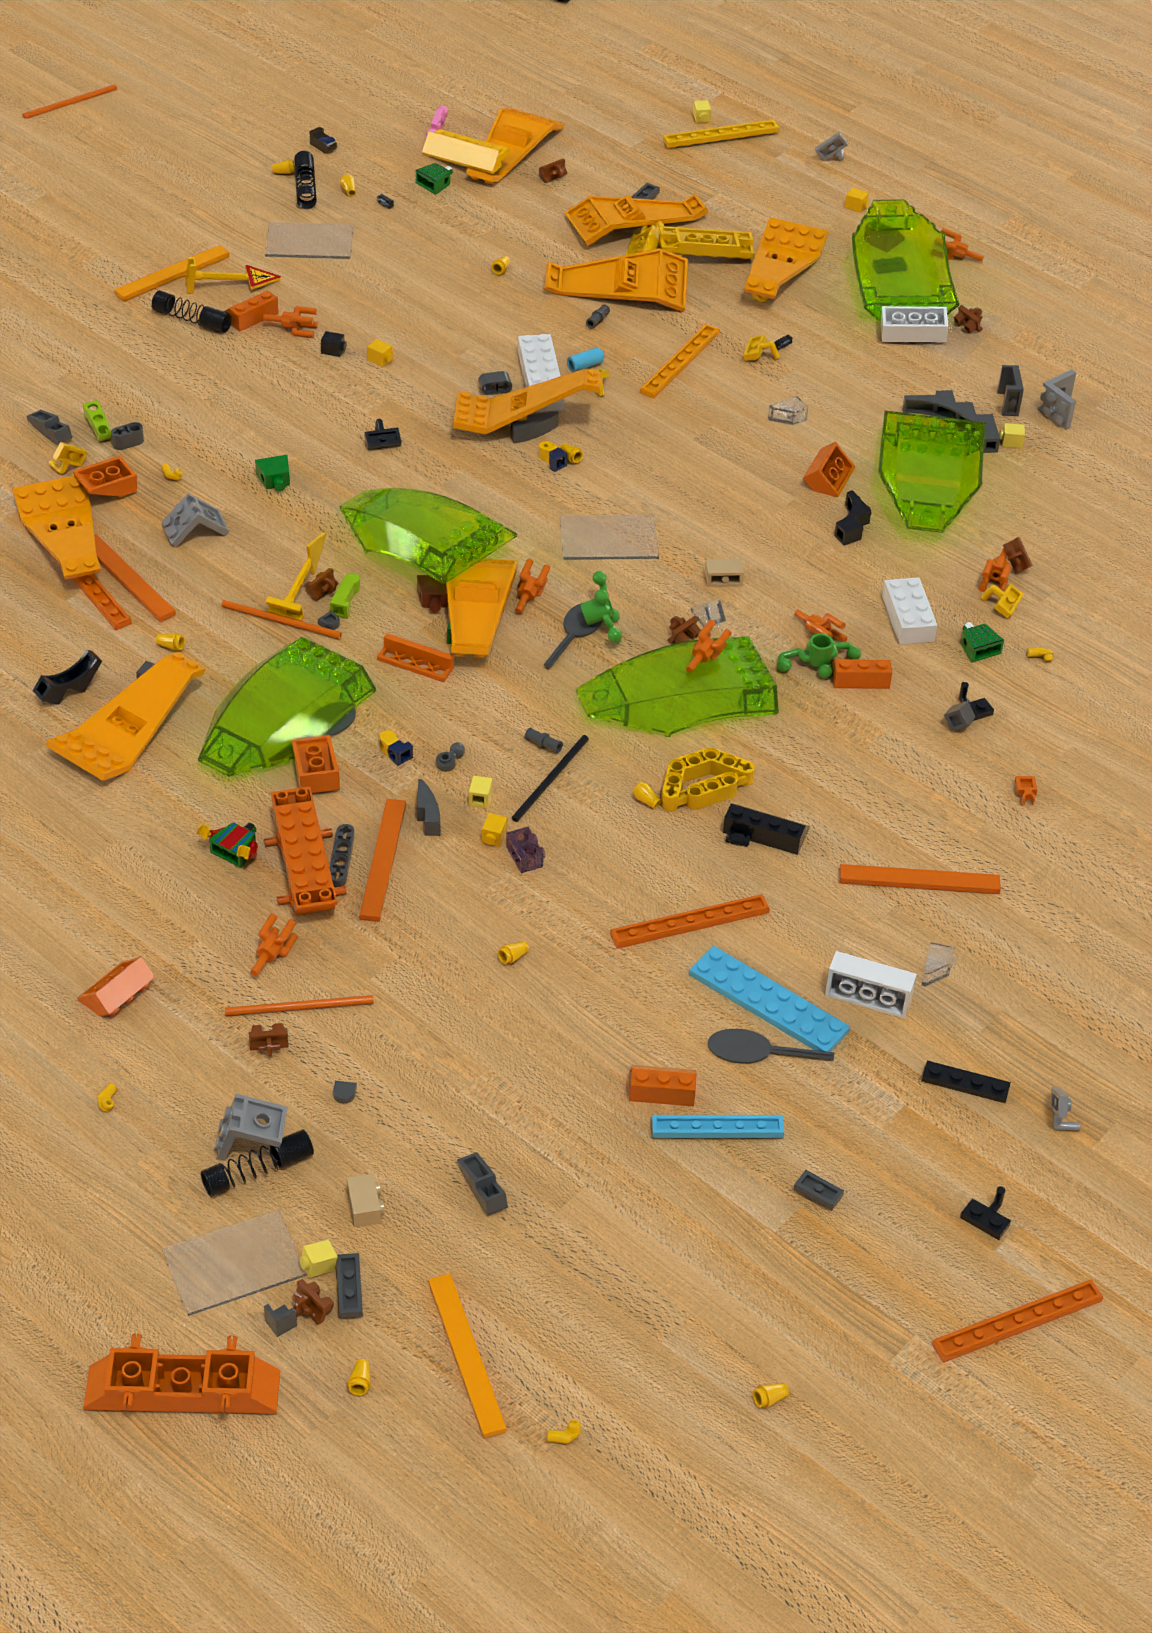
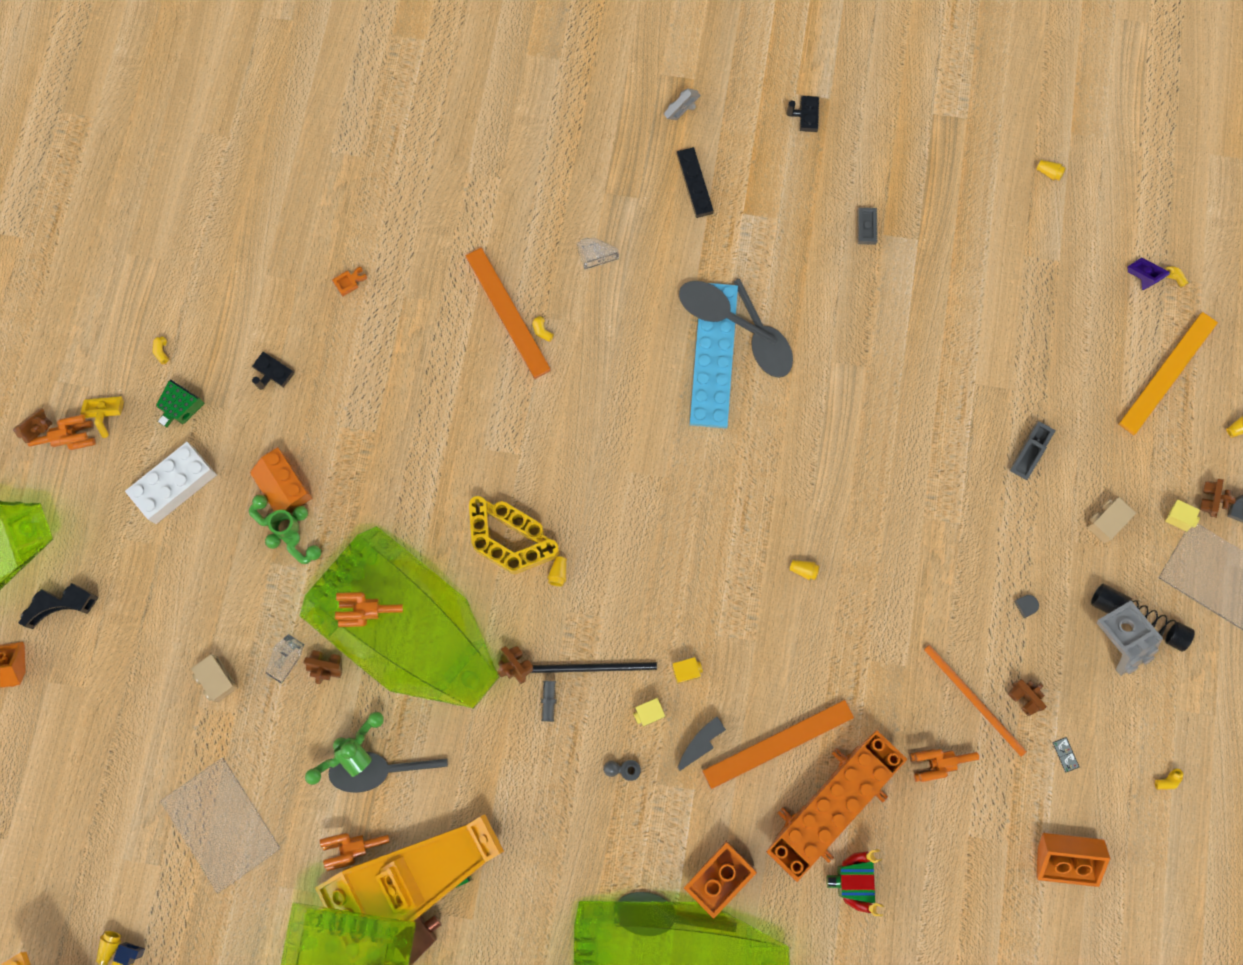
camera: 120 degrees left, 30 degrees up
(196, 1043) = (1066, 754): none -> light grey sticker
(339, 855) = (801, 785): dark grey beam -> none
(349, 1285) = (1182, 482): dark grey plate -> none
(394, 748) = (644, 835): dark blue leg -> none
(419, 655) = (510, 886): orange fence -> none
(525, 849) = (694, 633): brick -> none
(587, 1397) = (1147, 272): none -> dark purple slope
(590, 727) = (511, 667): none -> dark orange hips
(663, 1085) = (850, 380): orange slope -> none
(689, 921) = (673, 458): orange tile -> none
(717, 1126) = (862, 321): medium azure plate -> none
(738, 838) = (557, 471): black piece -> none
(766, 828) = (528, 456): black slope -> none
(817, 1015) = (713, 306): none -> dark grey piece
(823, 625) = (243, 546): orange plant -> none
(870, 984) = (658, 282): white brick -> none
(883, 891) = (539, 329): none -> yellow arm
(959, 716) = (292, 371): dark grey panel -> none
(1017, 1320) = (877, 58): orange tile -> none

